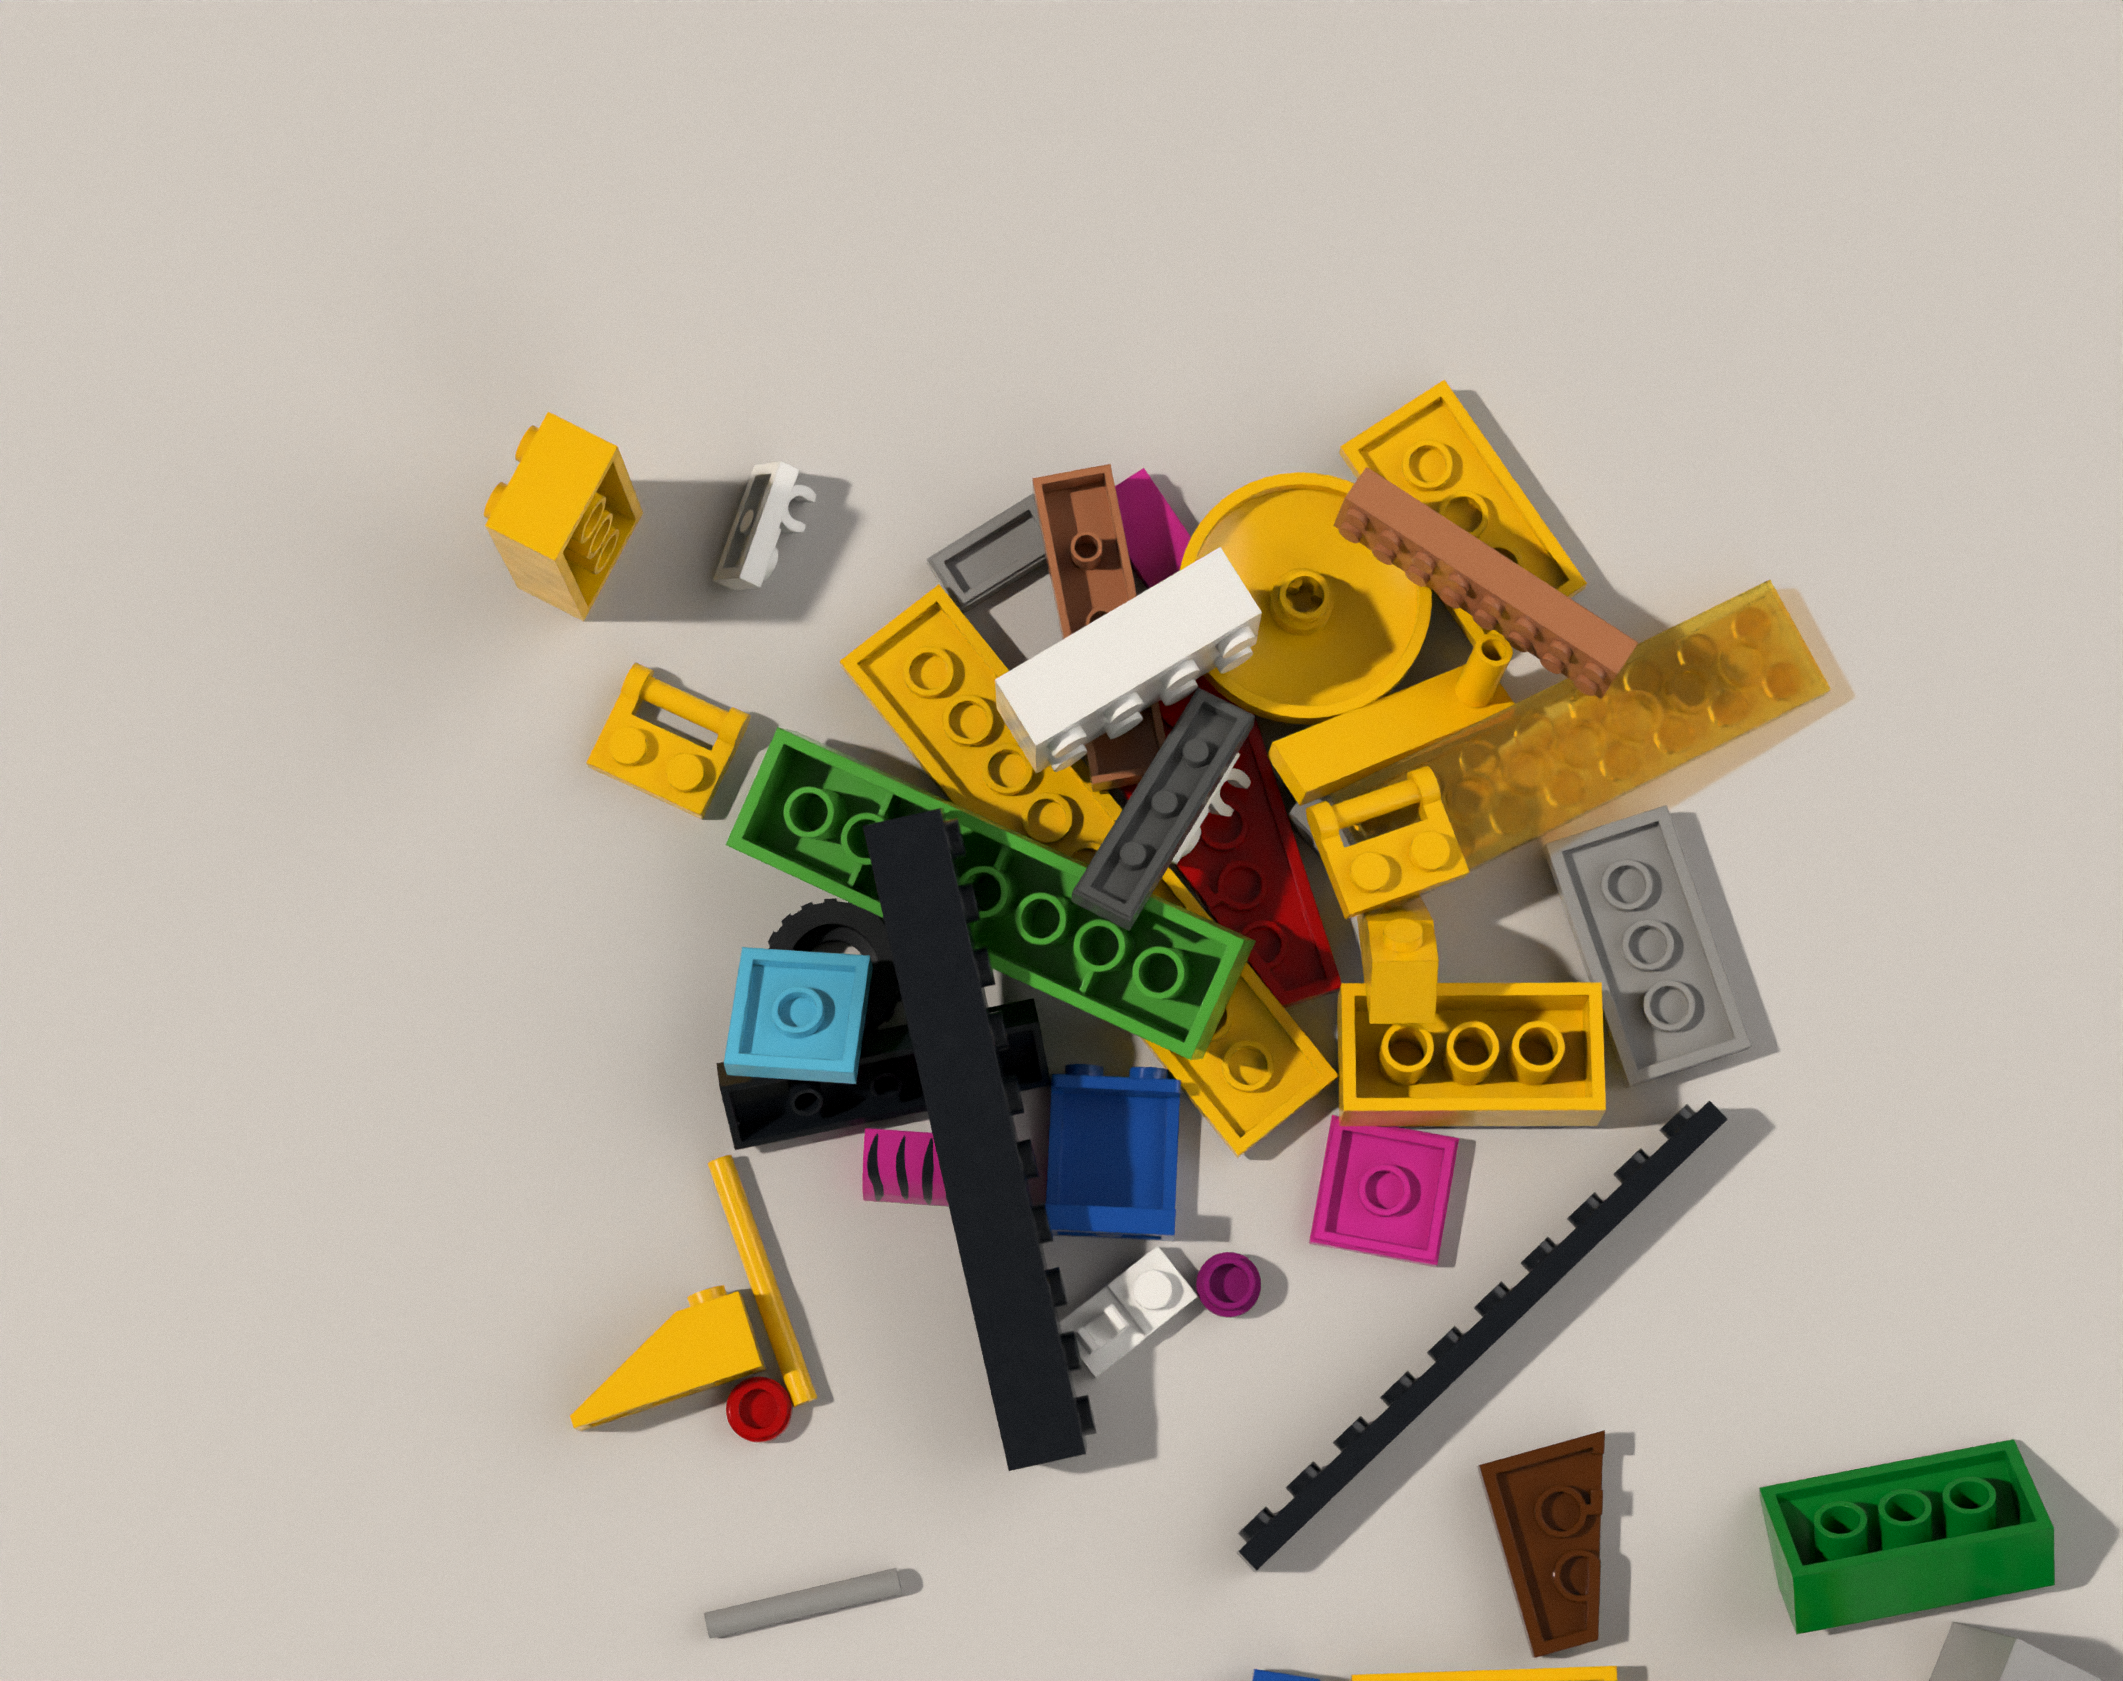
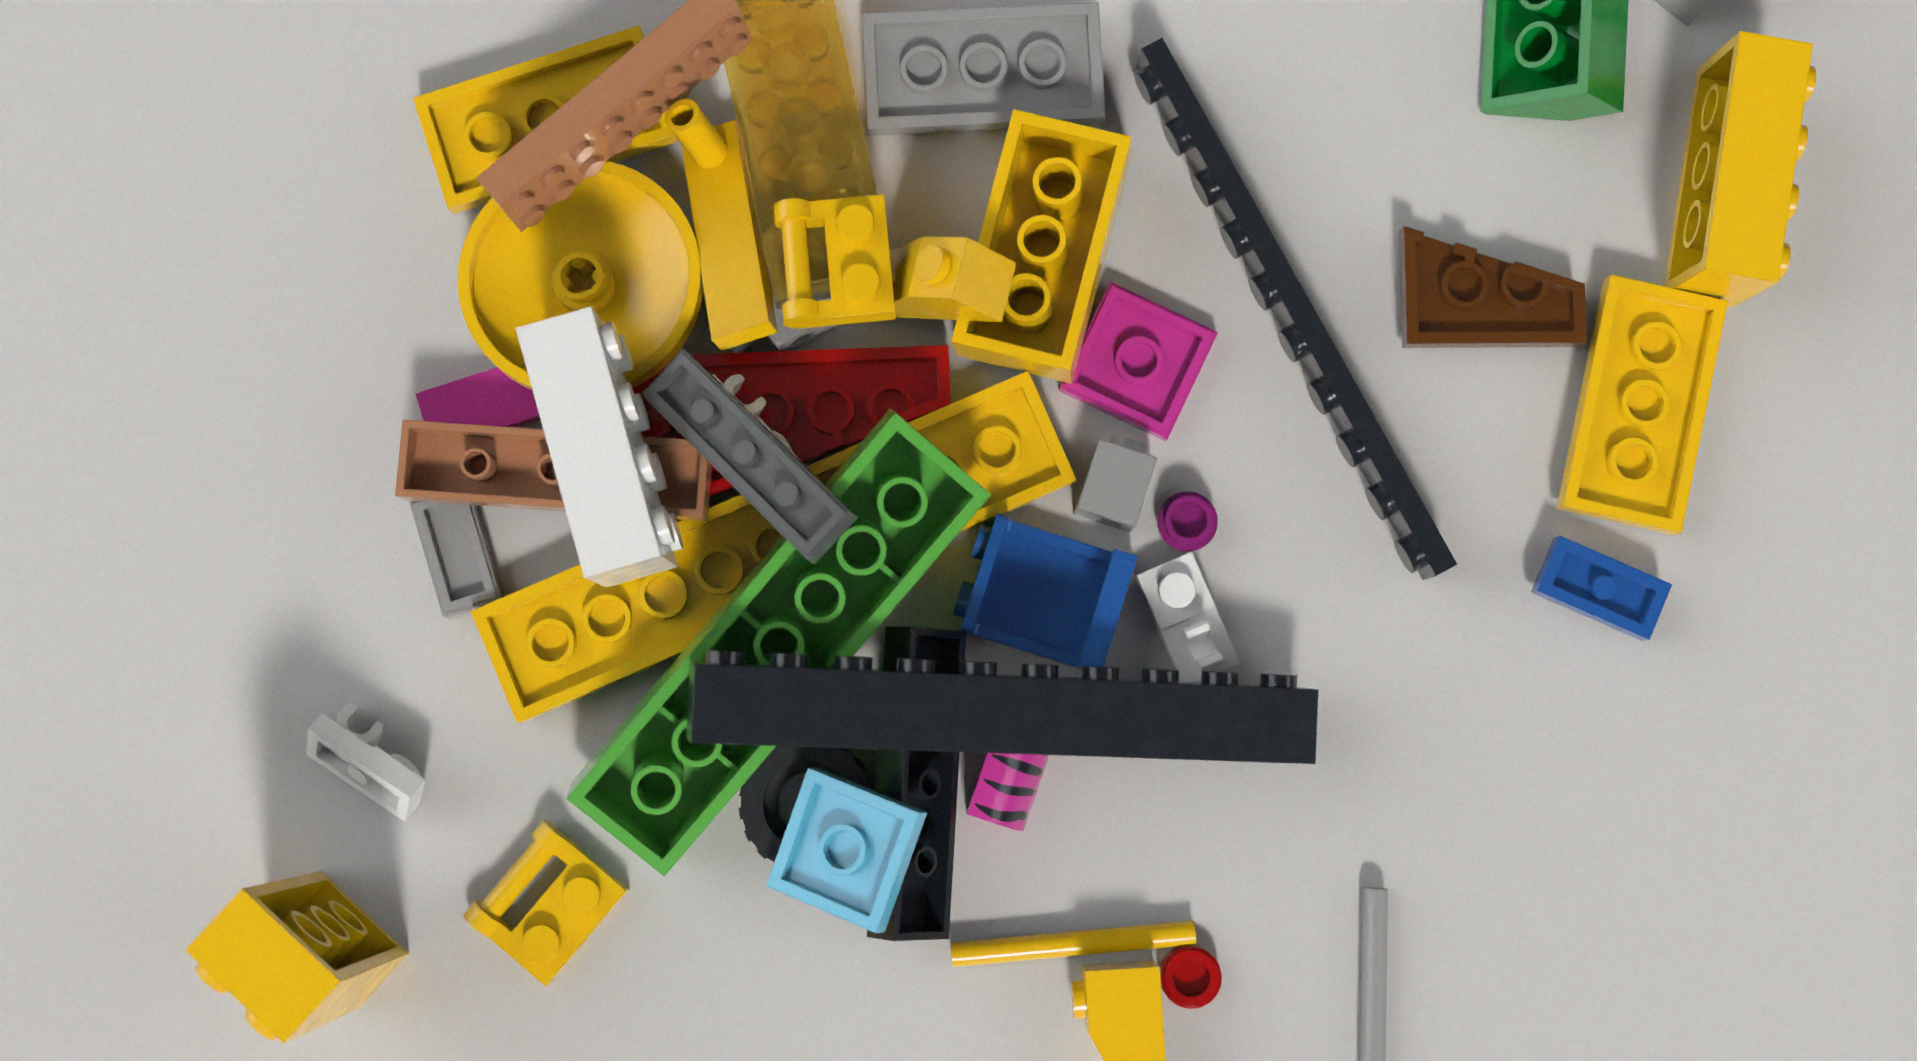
camera: 80 degrees left, 5 degrees up
(1247, 1197) = (1116, 483): none -> light grey brick

